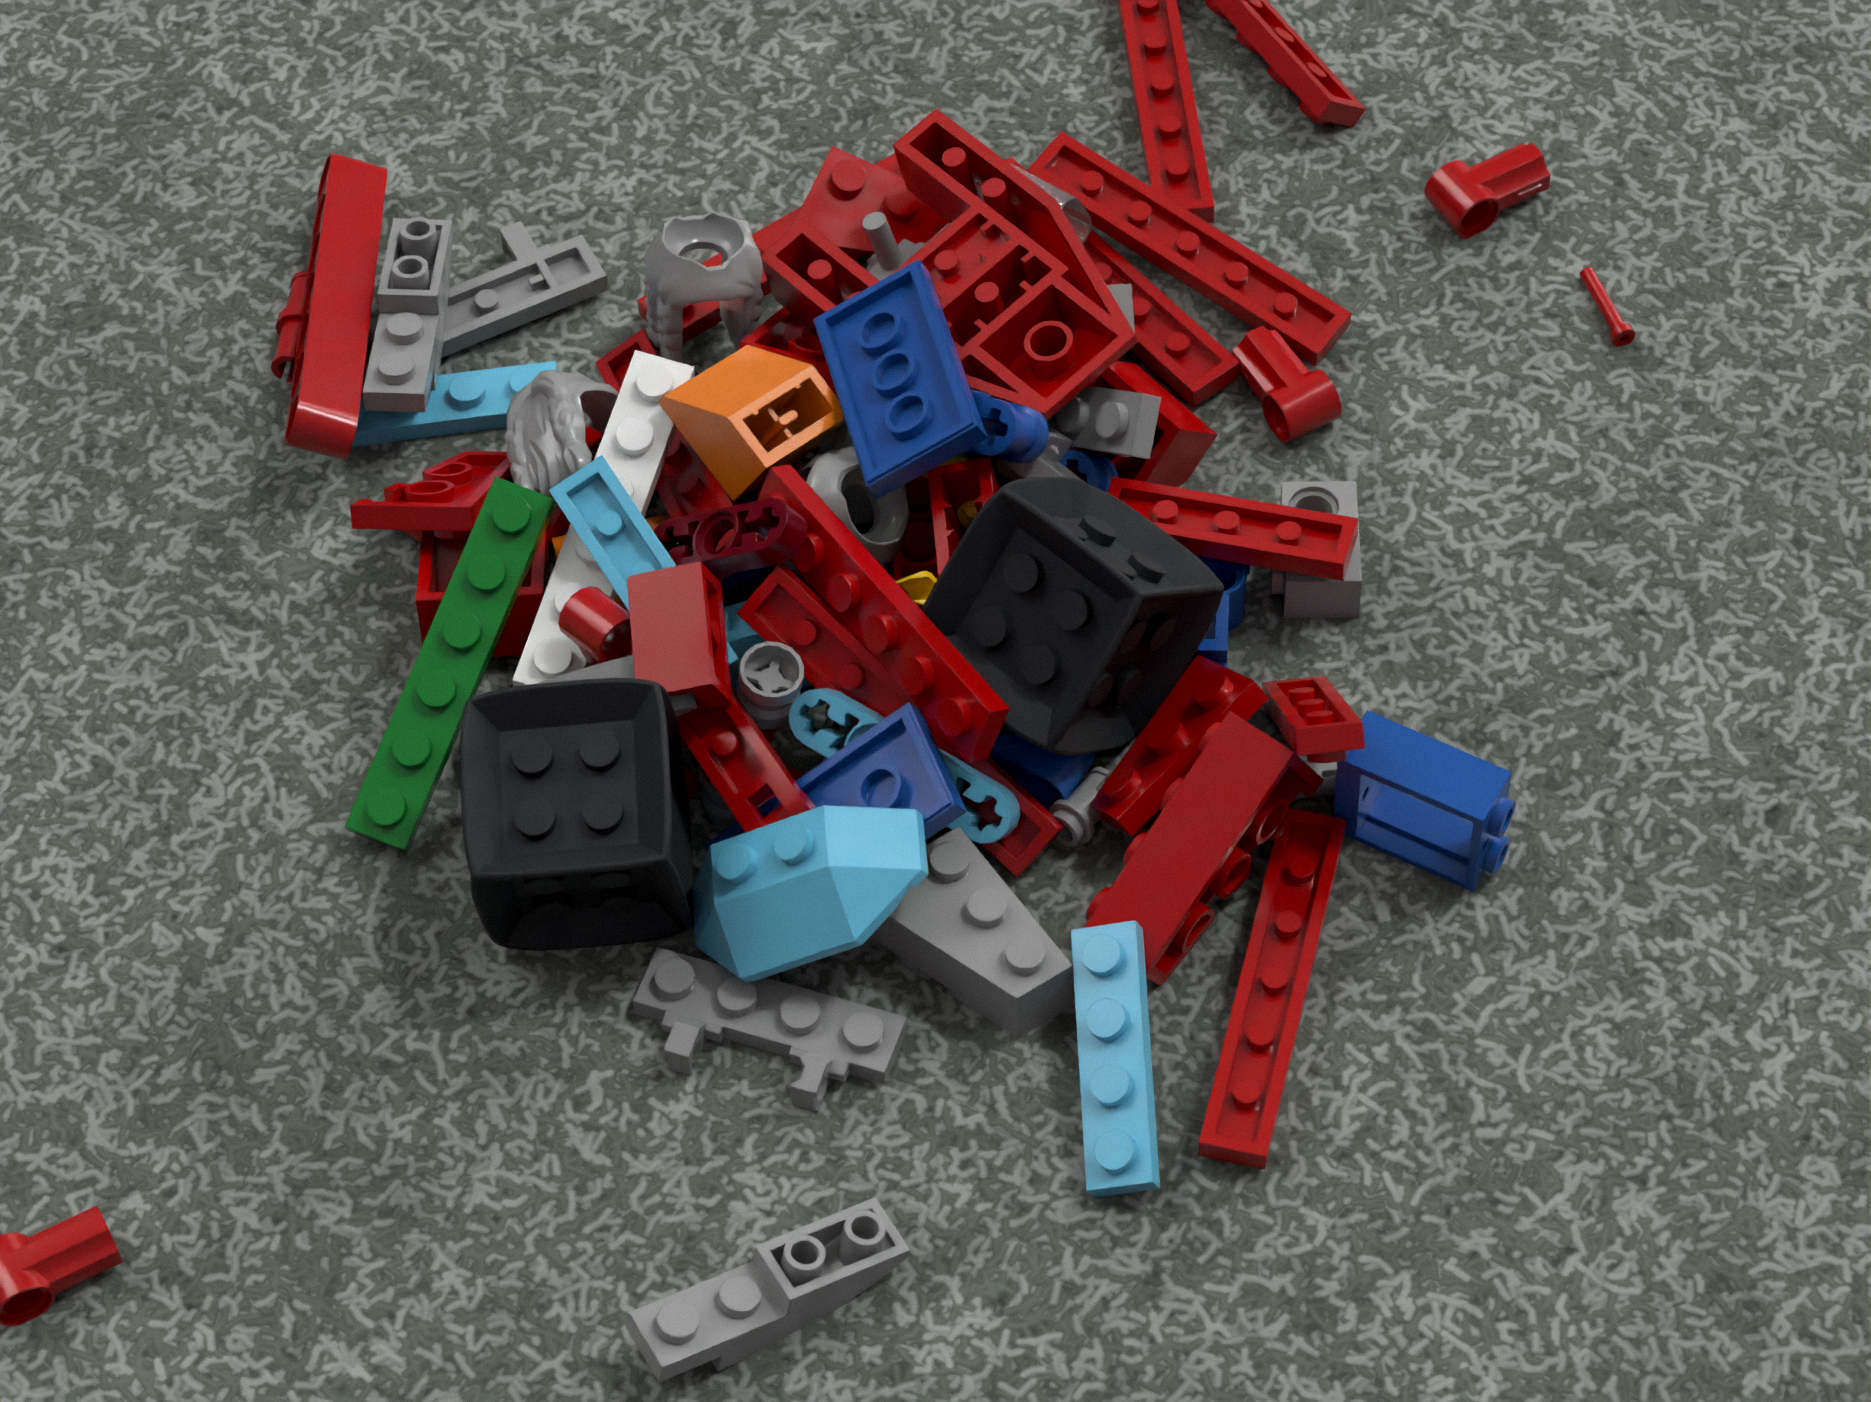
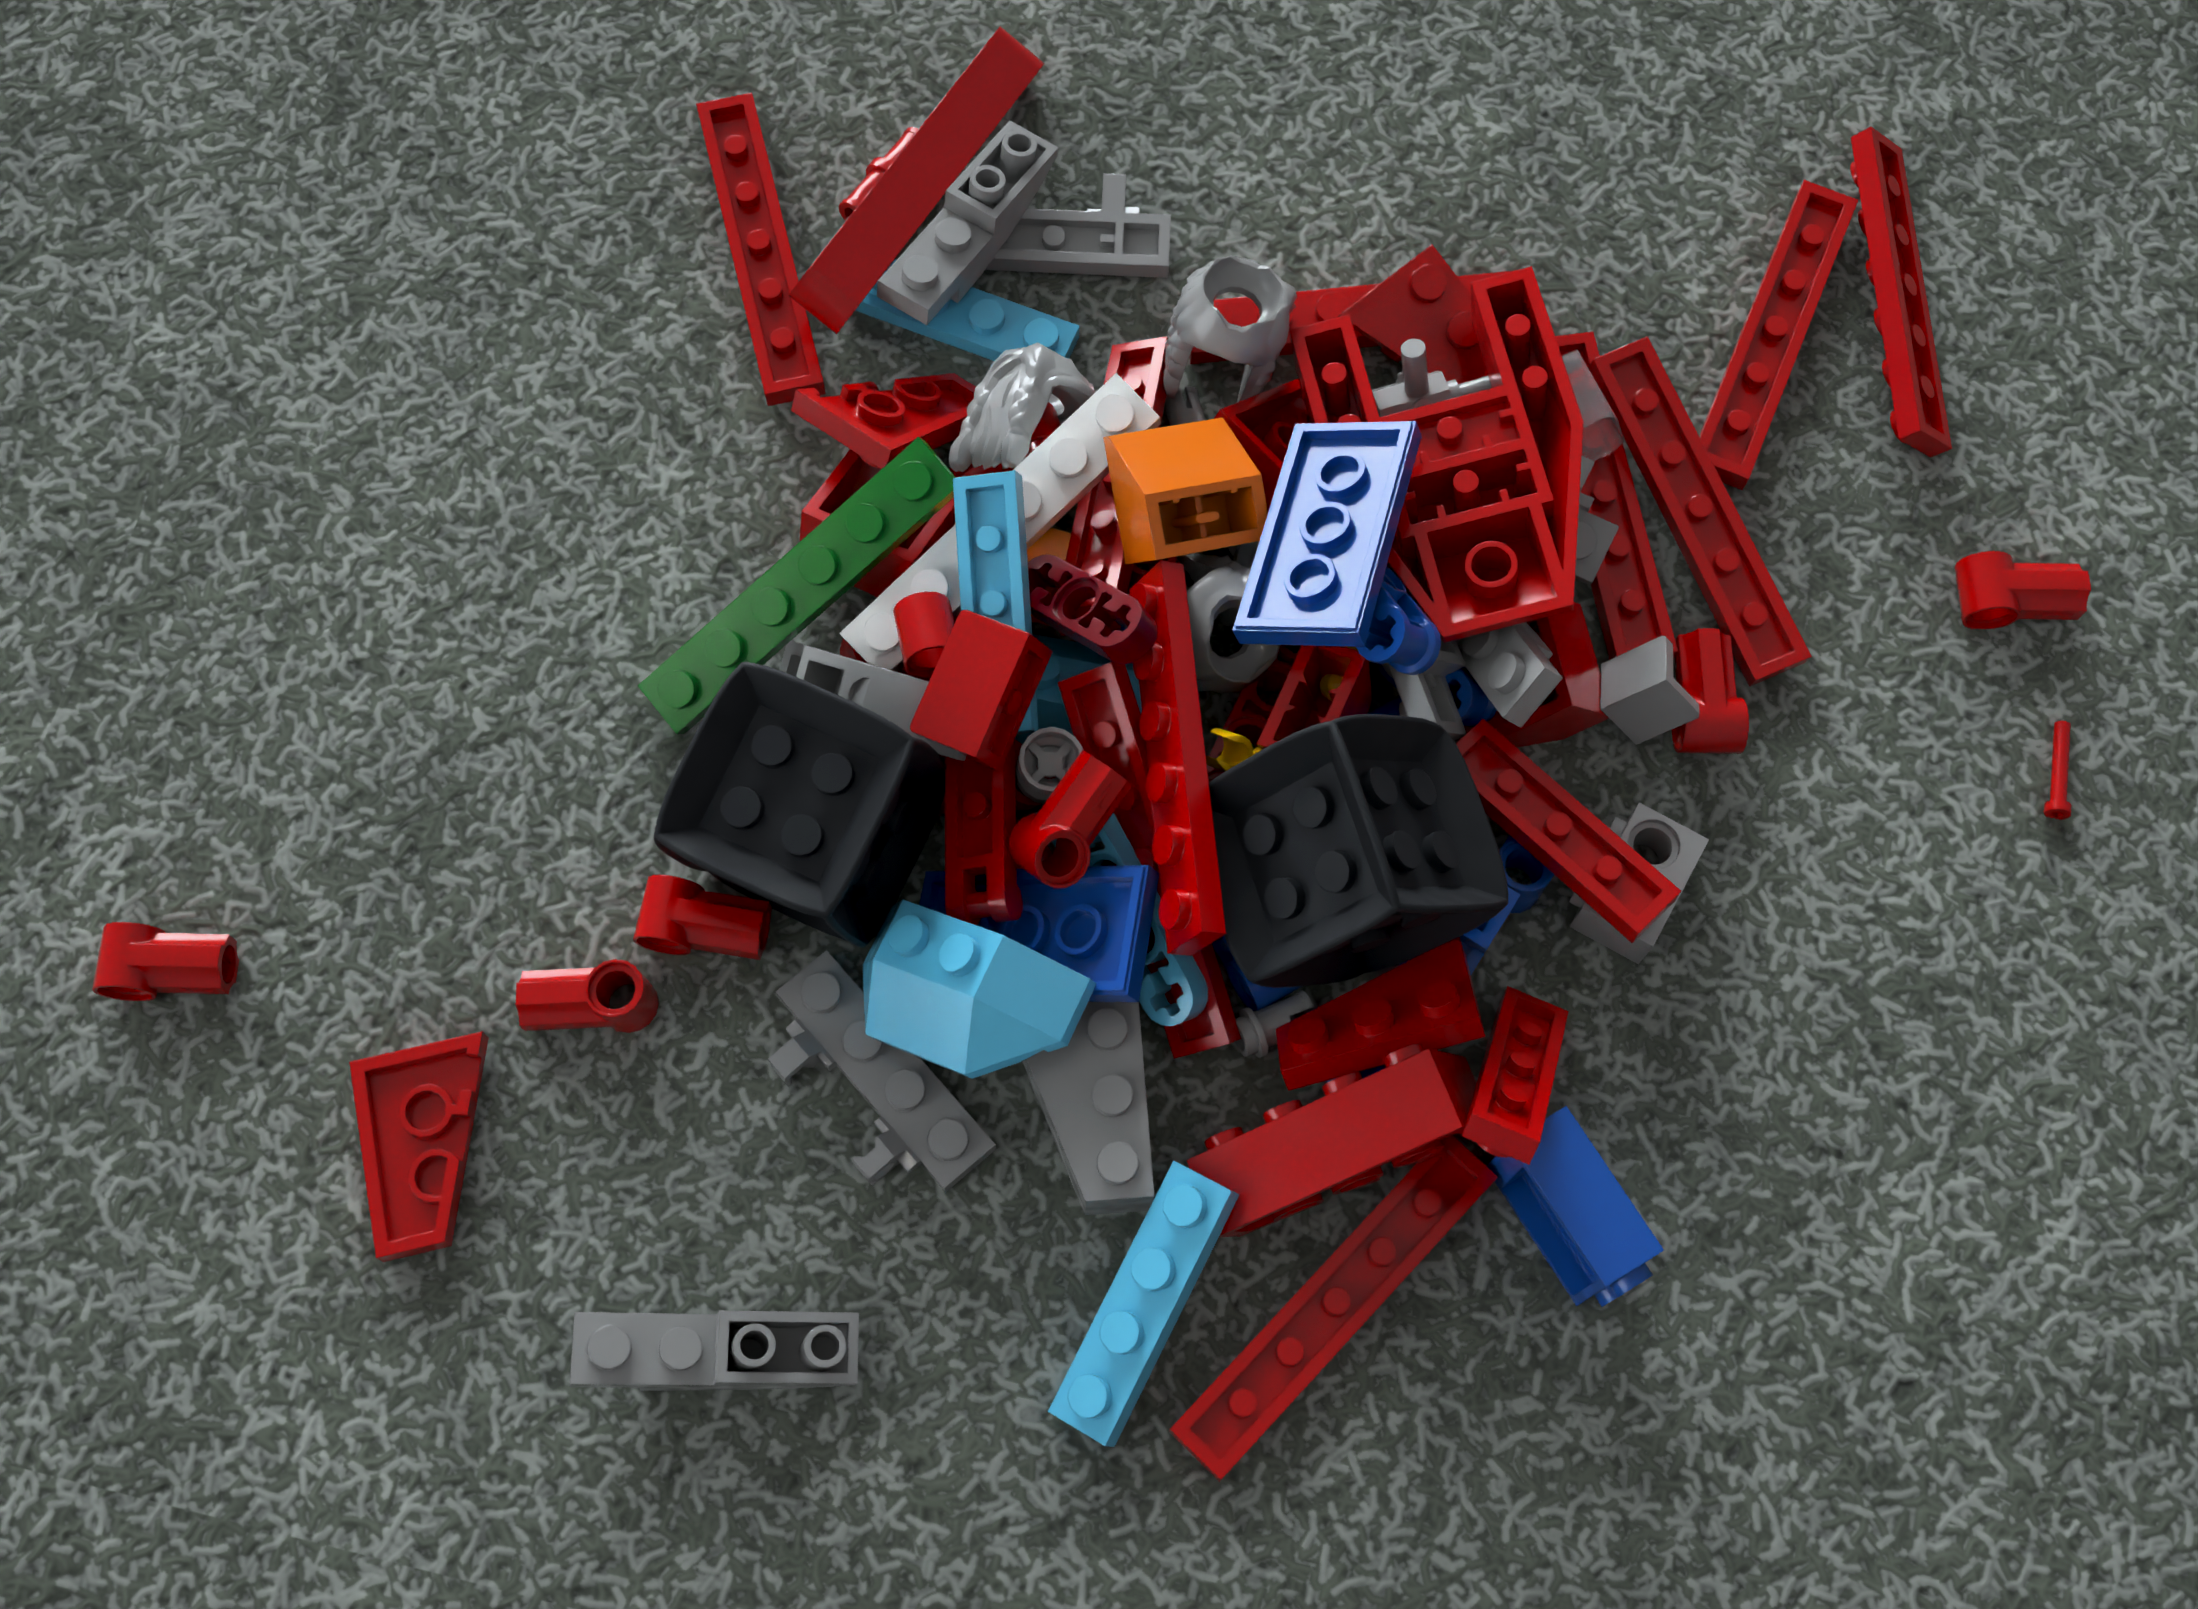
camera: 25 degrees right, 15 degrees up
(219, 434) = (759, 248): none -> red plate
(381, 1279) = (416, 1139): none -> red wing
(463, 1091) = (582, 998): none -> red piece
(511, 985) = (684, 917): none -> red piece
(819, 717) = (1073, 817): none -> red piece
(1234, 399) = (1643, 694): none -> light grey panel

